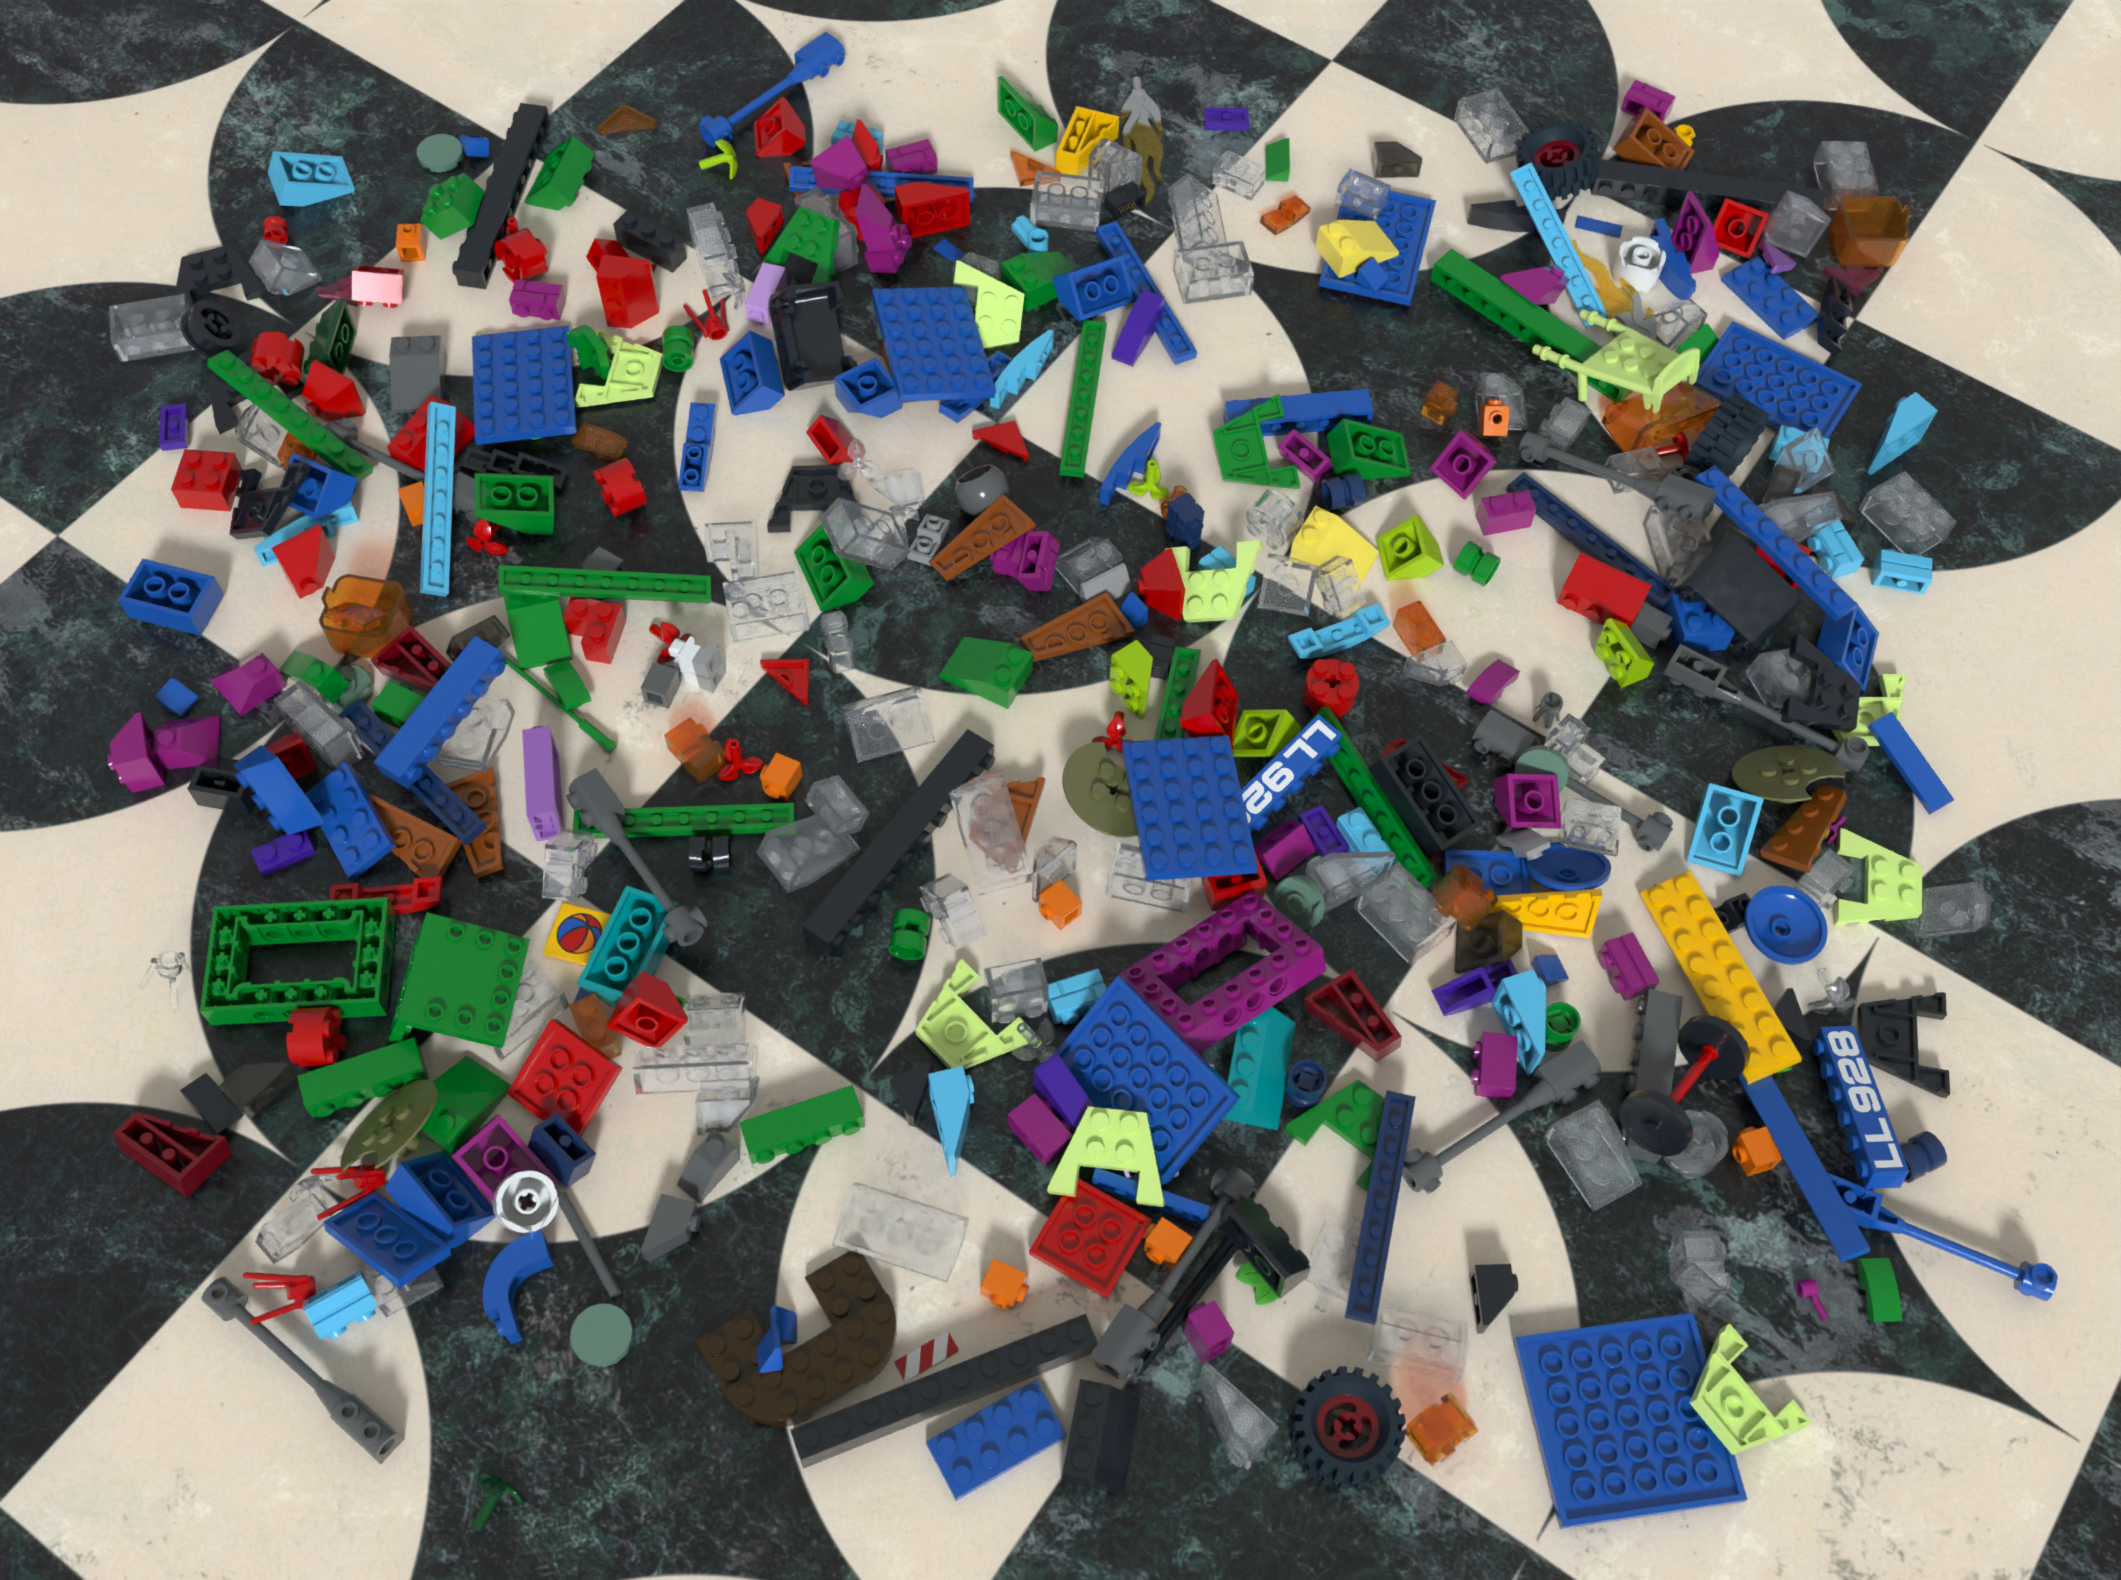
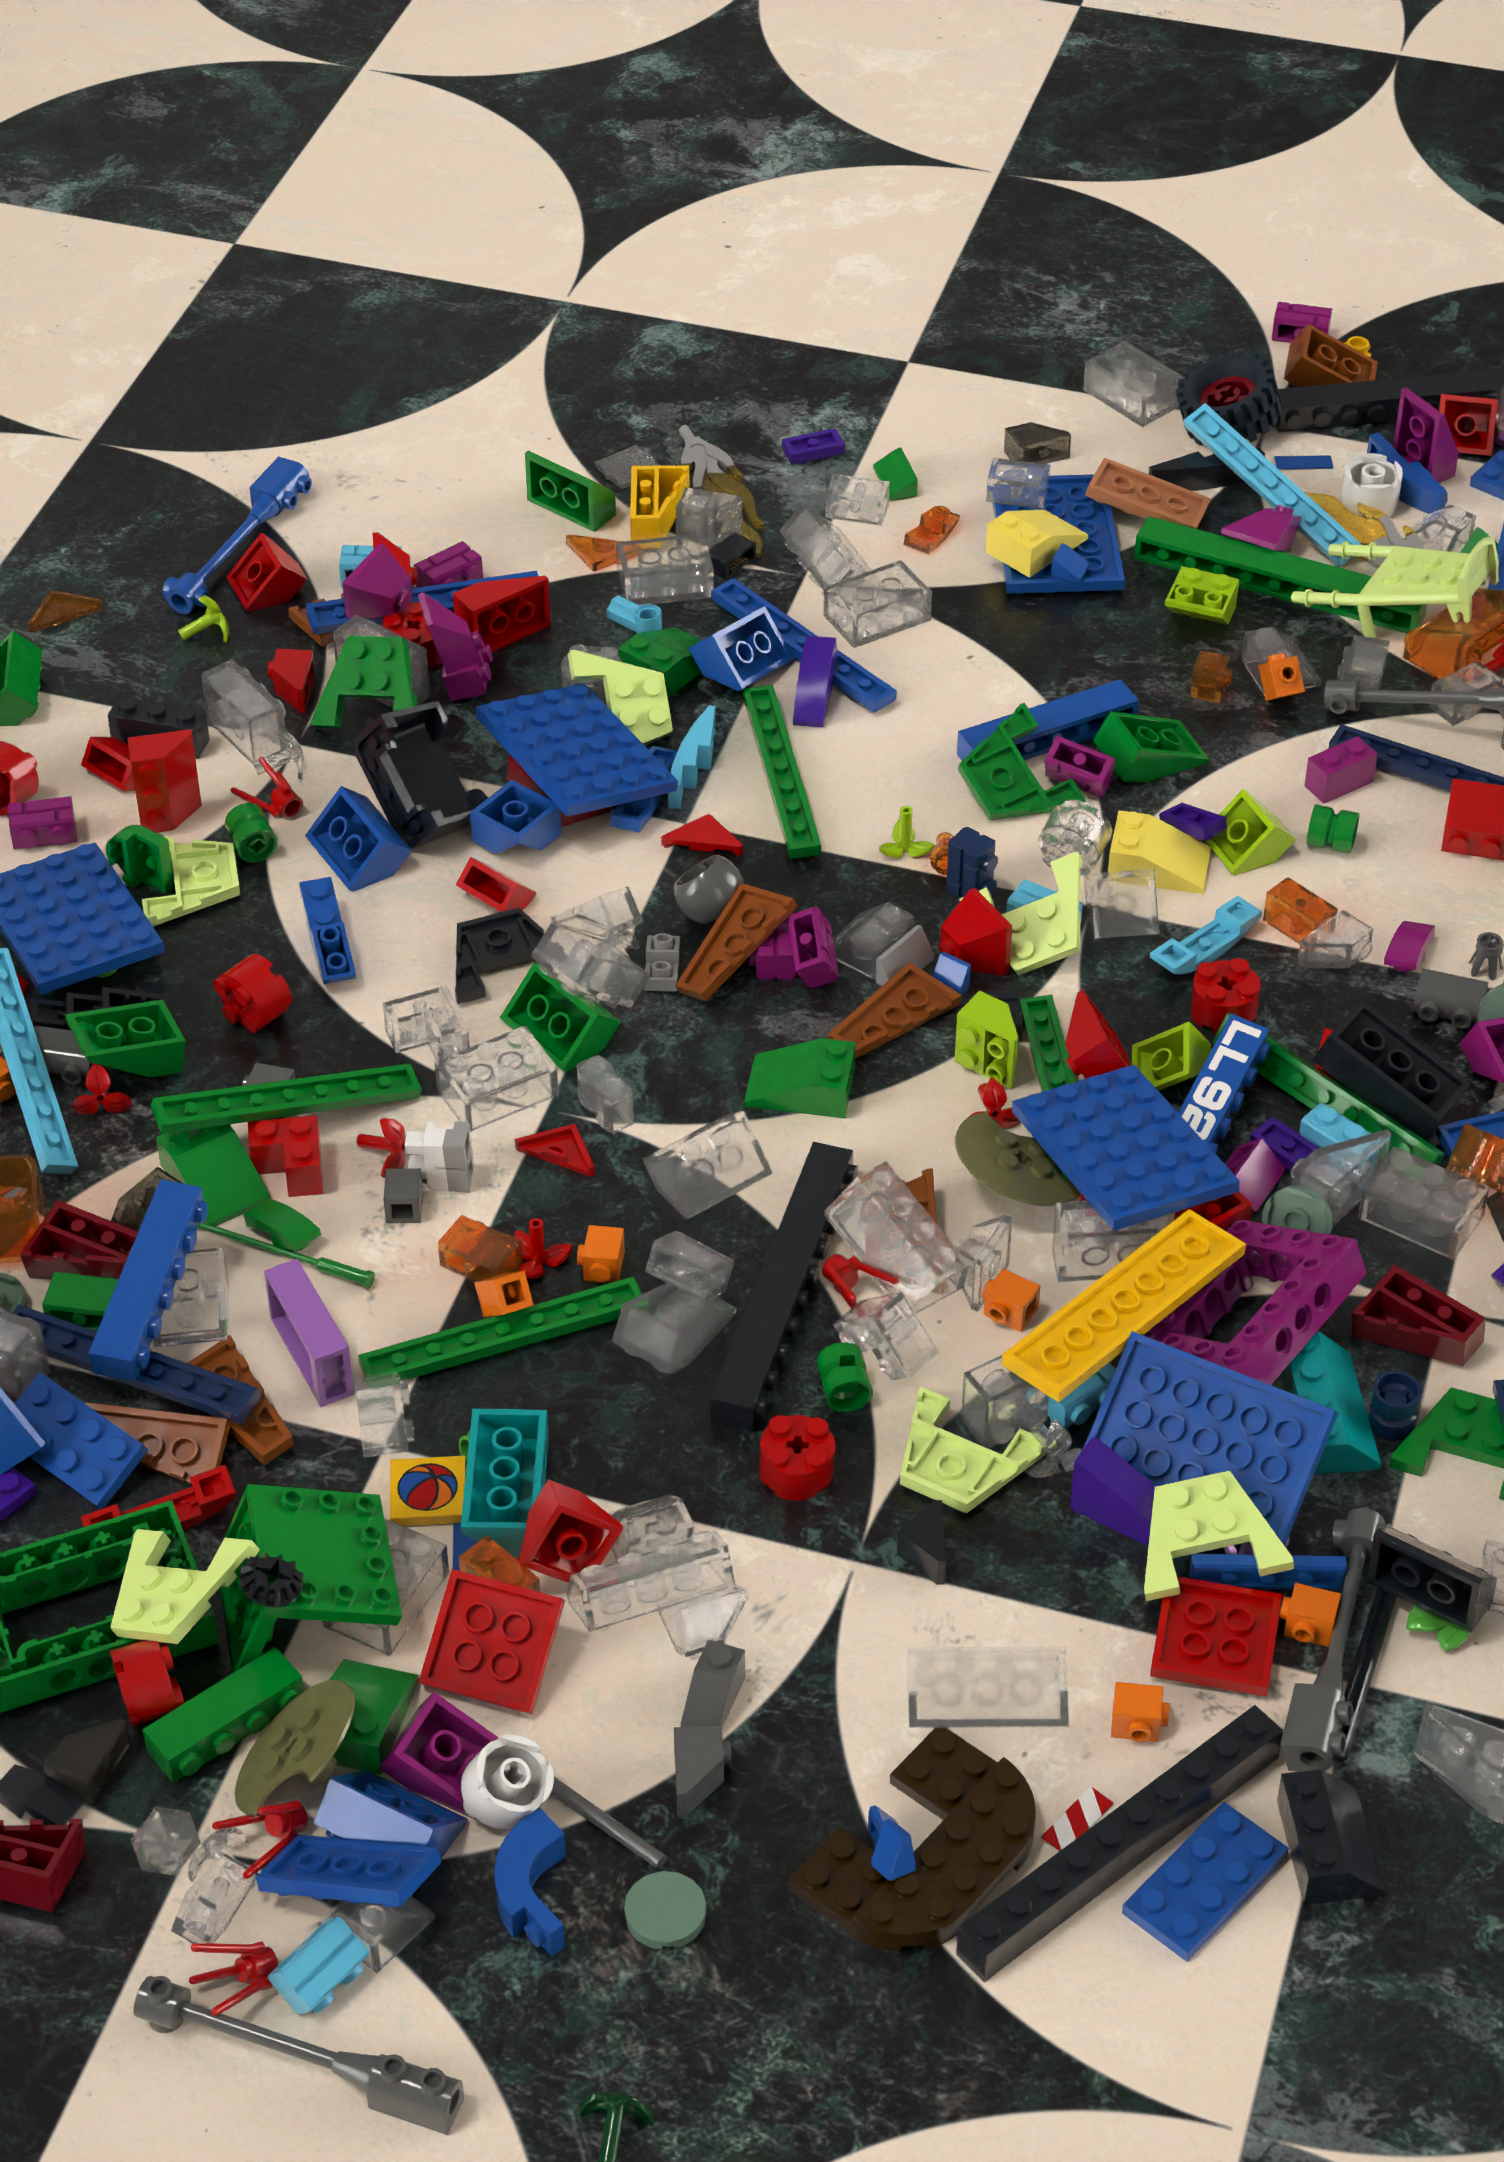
camera: 15 degrees left, 15 degrees down
(278, 1170) = (165, 1841): none -> clear brick
(339, 983) = (168, 1601): none -> yellowish green wing
(410, 1011) = (284, 1589): none -> black gear
(561, 1150) = (523, 1711): dark blue brick -> none
(600, 441) = (201, 954): clear orange slope -> none
(606, 813) = (406, 1339): dark grey bar -> none
(694, 791) = (503, 1293): none -> orange brick
(720, 853) = (567, 1353): black wheel -> none
(768, 281) = (333, 750): lavender brick -> none
(802, 1124) = (809, 1613): green brick -> none
(861, 993) = (796, 1456): none -> red brick
(867, 468) = (533, 907): clear plant -> none
(944, 846) = (844, 1276): none -> red plant
(949, 251) = (541, 659): blue sticker -> none
(951, 1099) = (986, 1545): medium azure slope -> none
(1040, 1129) = (1102, 1539): magenta brick -> none
(1084, 97) = (619, 465): none -> clear piece
(1125, 947) = (1126, 1299): none -> yellow plate
(1131, 460) = (872, 822): blue slope -> none
(1208, 1331) = (1405, 1684): magenta brick -> none
(1339, 586) = (1187, 886): clear brick -> none
(1347, 491) = (1143, 792): dark blue wheel -> none
(1372, 527) = (1194, 821): none -> dark purple plate
(1459, 229) = (1146, 495): none -> nougat plate
(1464, 463) = (1268, 732): magenta slope -> none
(1465, 329) = (1203, 595): none -> lime slope

